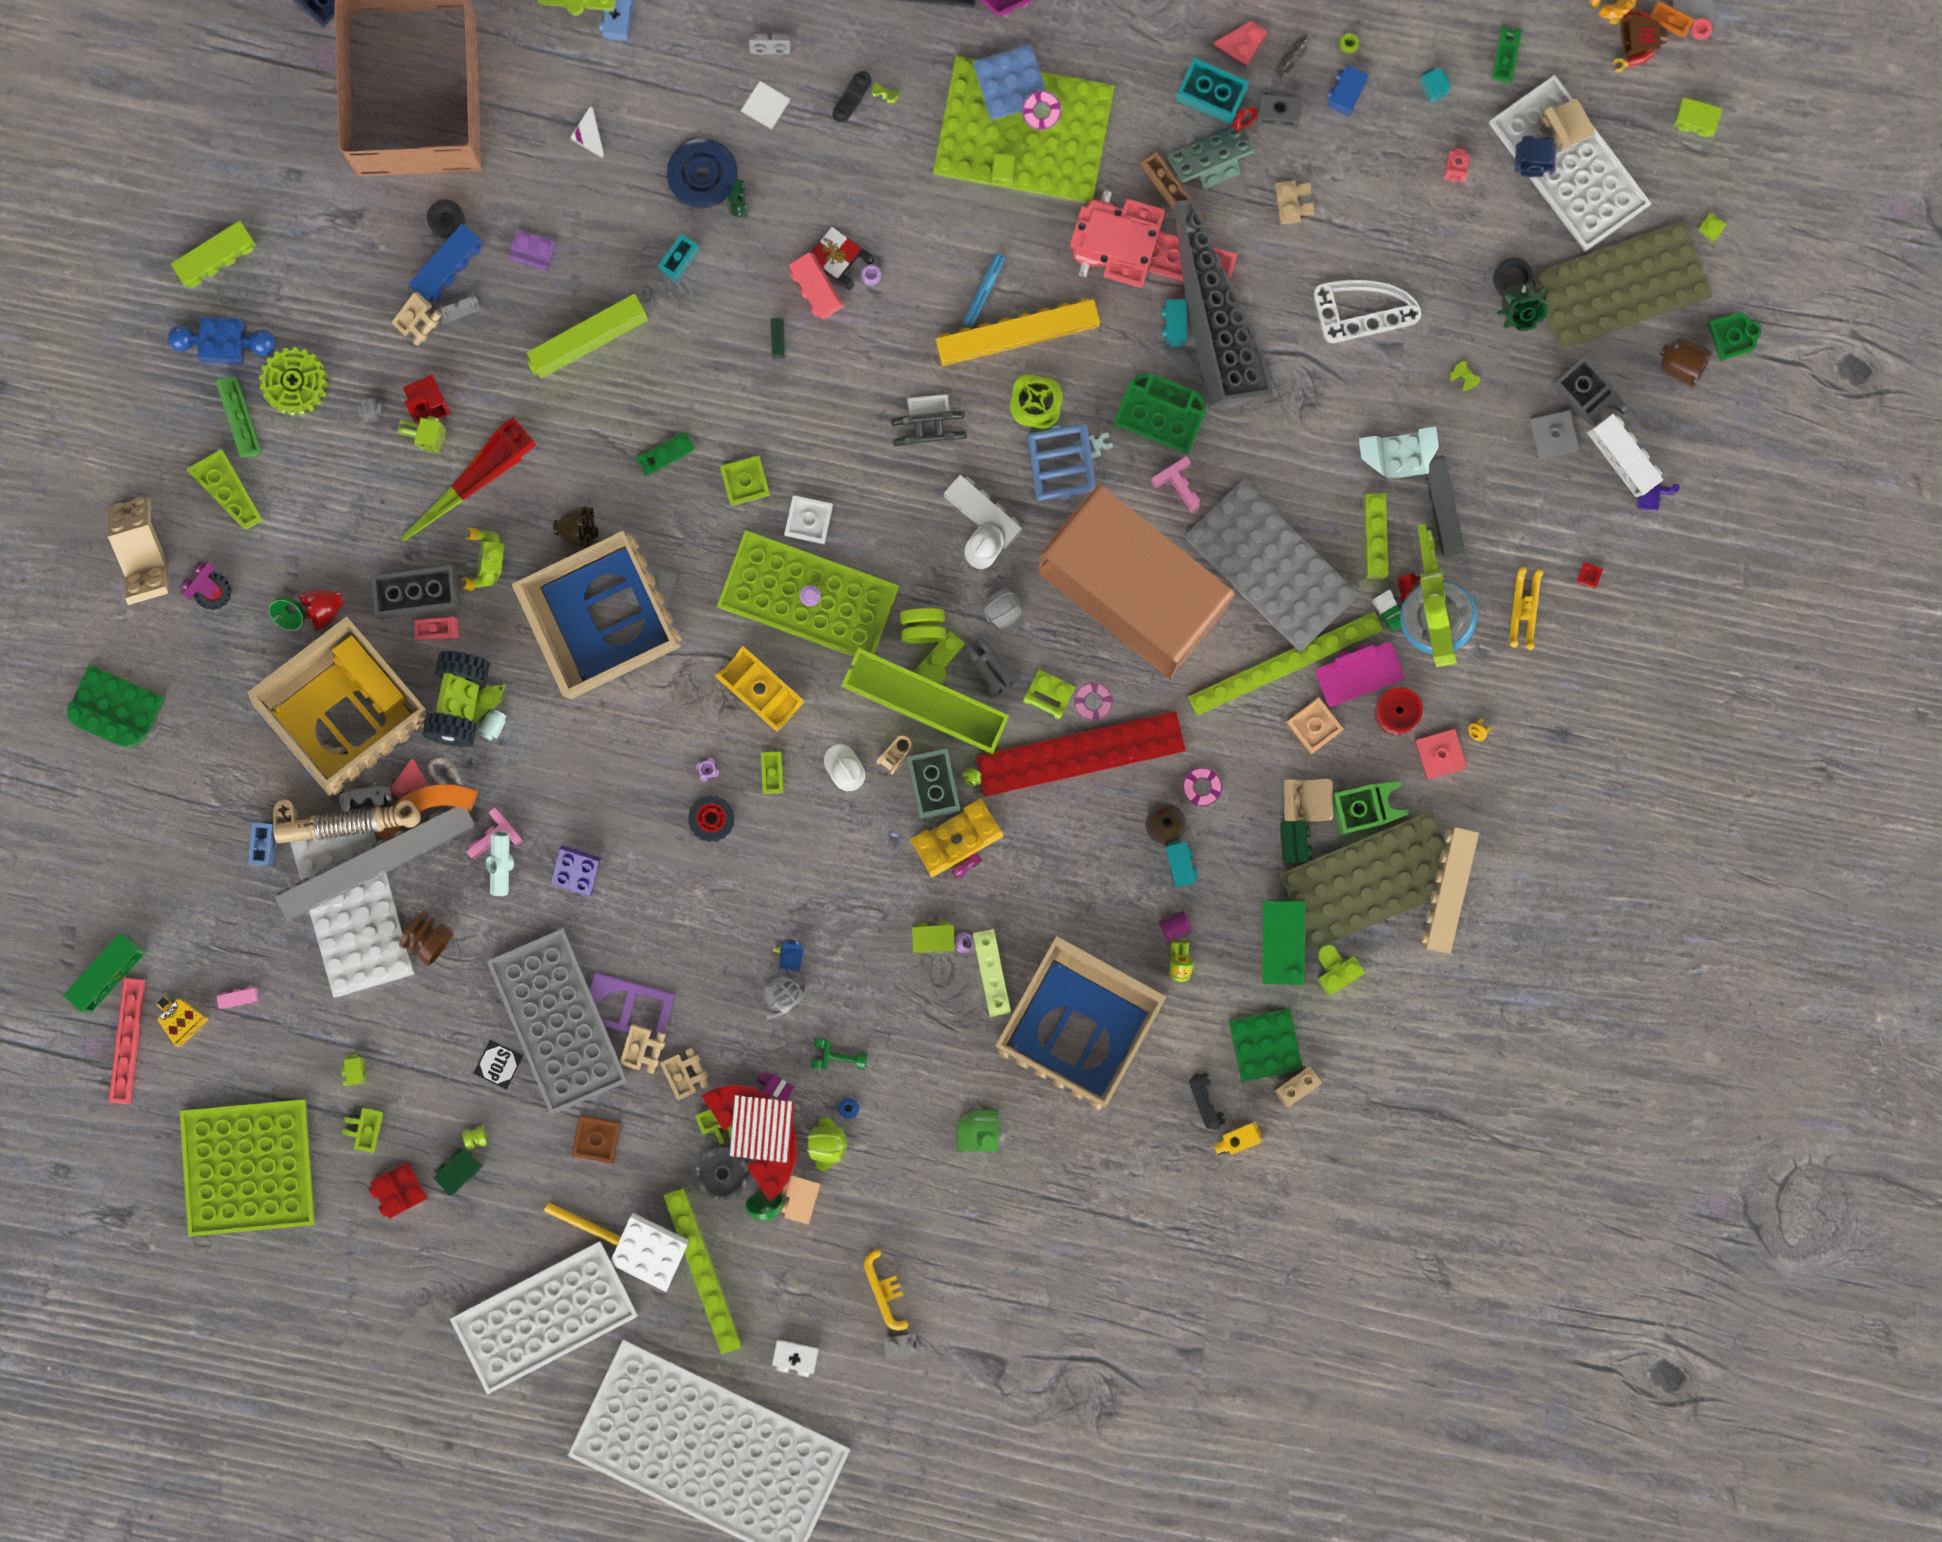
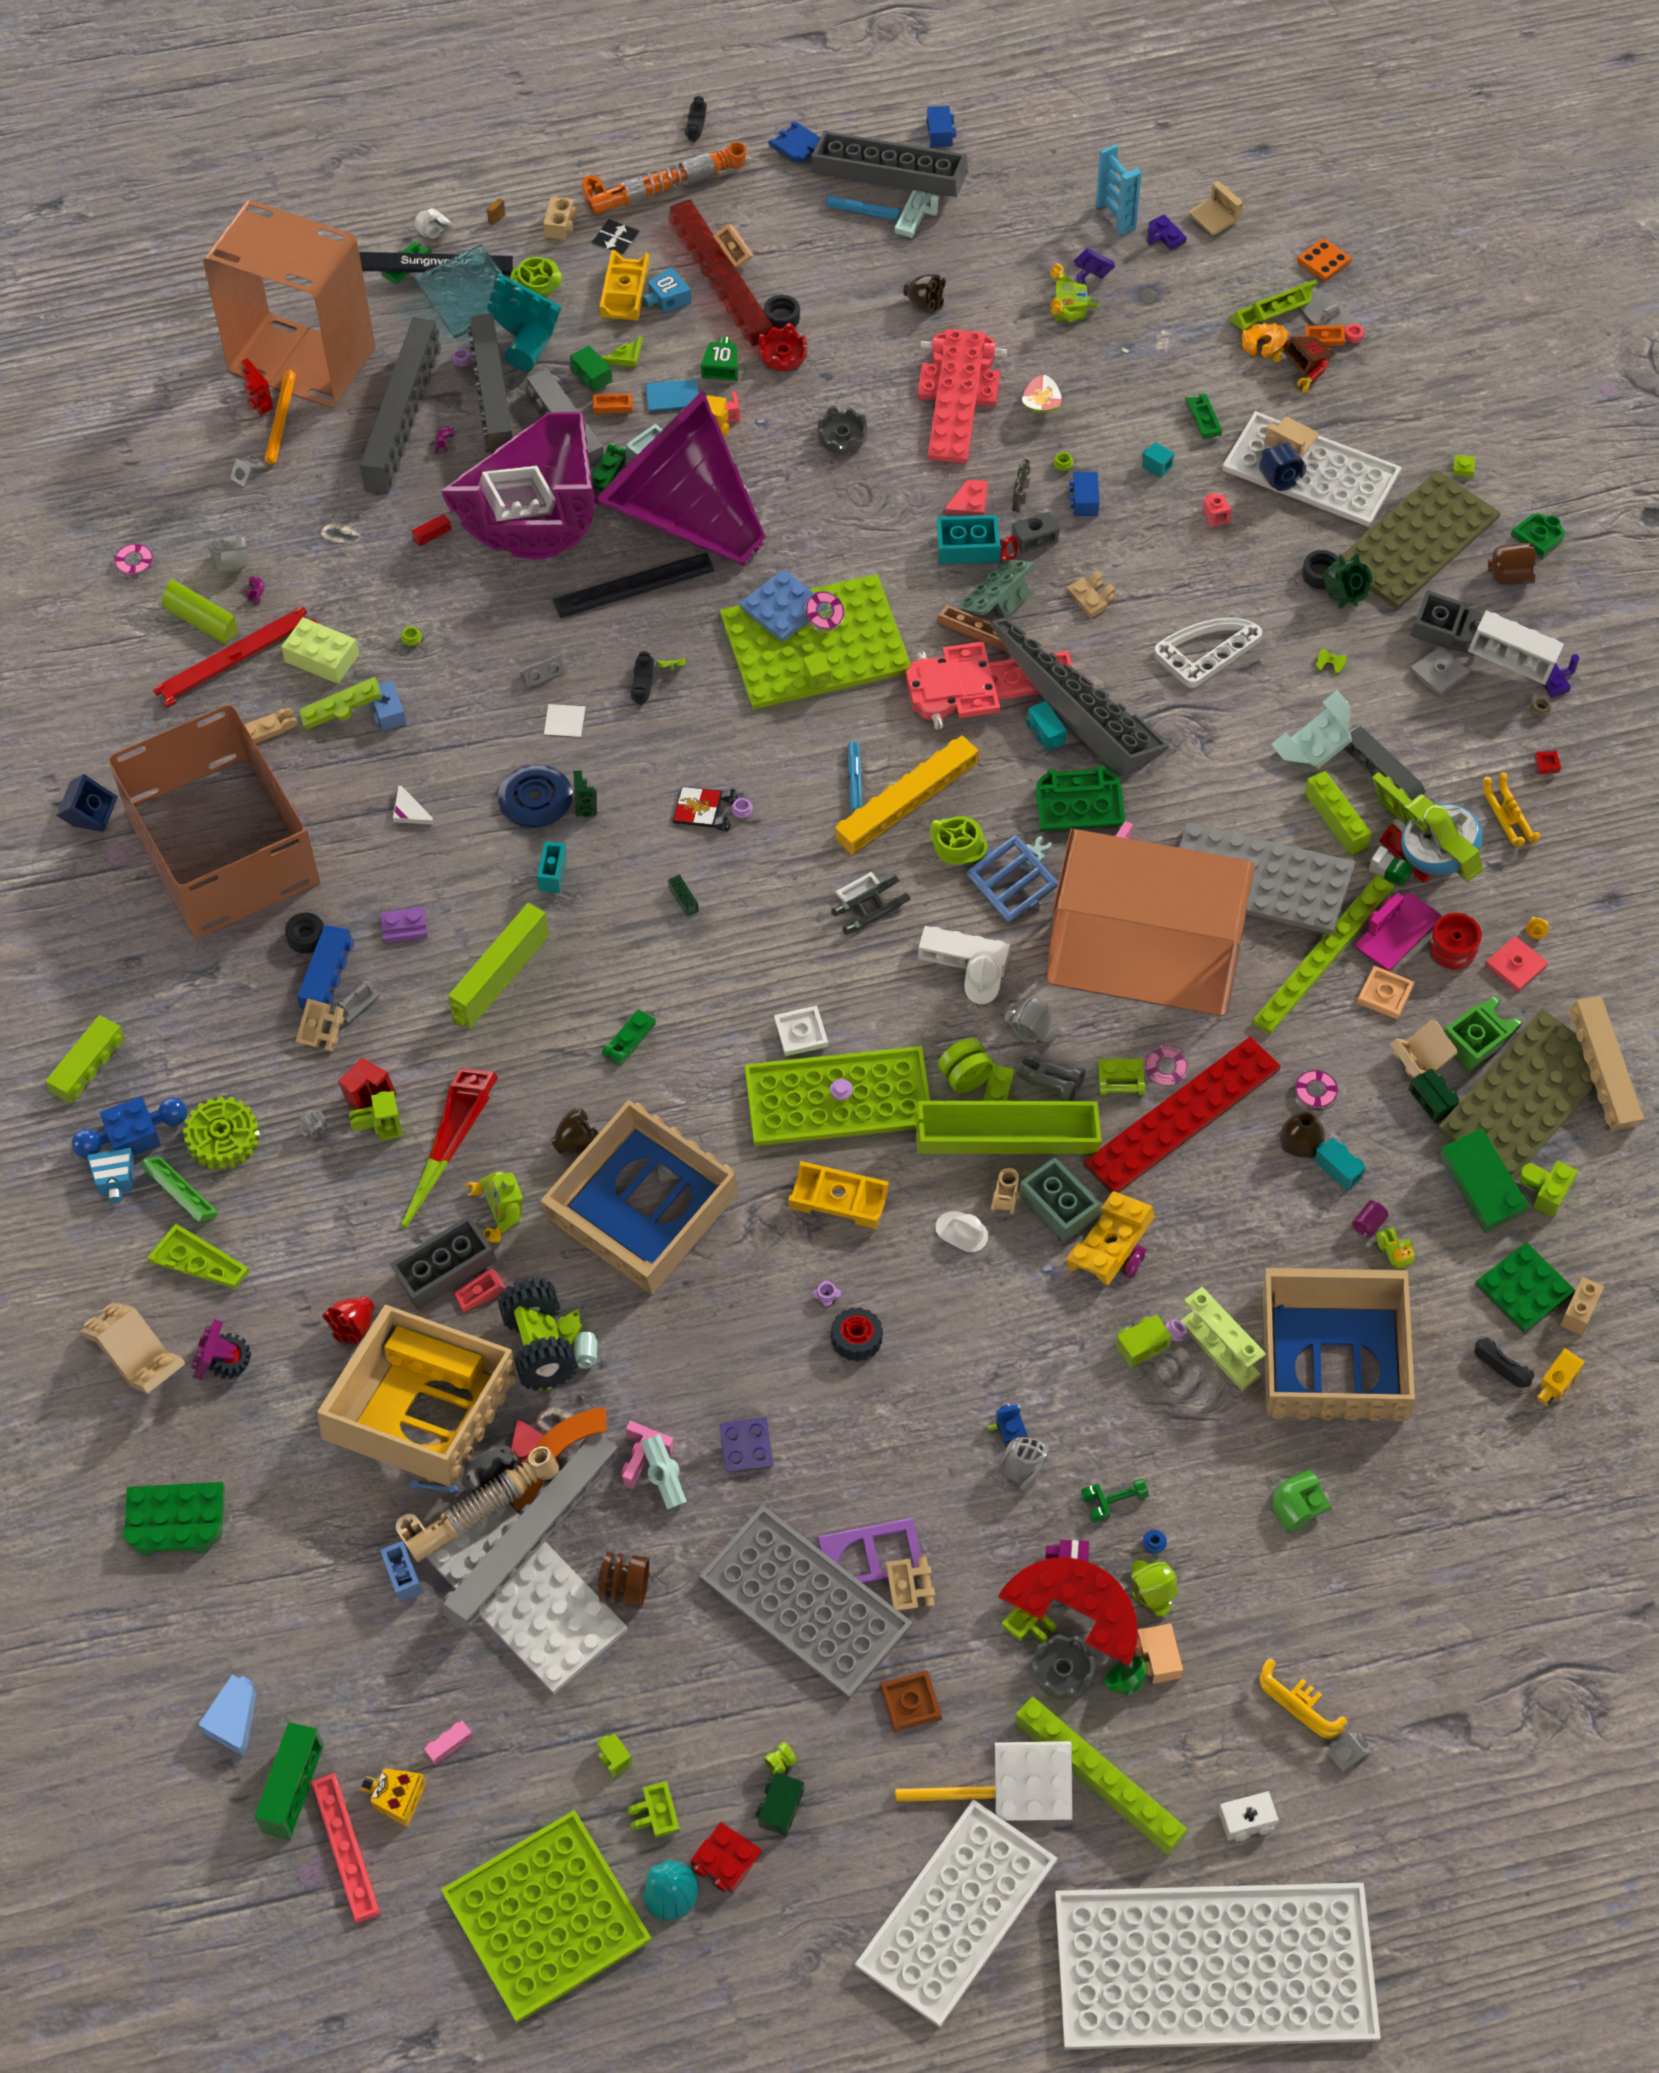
camera: 25 degrees left, 25 degrees down
(88, 896) = (231, 1715): none -> light blue slope
(191, 376) = (113, 1172): none -> dark azure torso
(283, 616) = (315, 1350): green piece -> none
(347, 1194) = (670, 1890): none -> teal hair
(498, 1064) = (765, 1678): sticker -> none
(678, 1076) = (963, 1595): tan plate -> none
(745, 480) = (720, 1025): lime plate -> none
(762, 1129) = (1081, 1592): sticker -> none
(772, 772) = (893, 1265): lime plate -> none
(815, 286) = (695, 836): coral brick -> none
(972, 777) = (1092, 1179): lime plate -> none
(1623, 512) = (1542, 703): none -> dark tan plate
(1697, 117) = (1395, 392): lime brick -> none

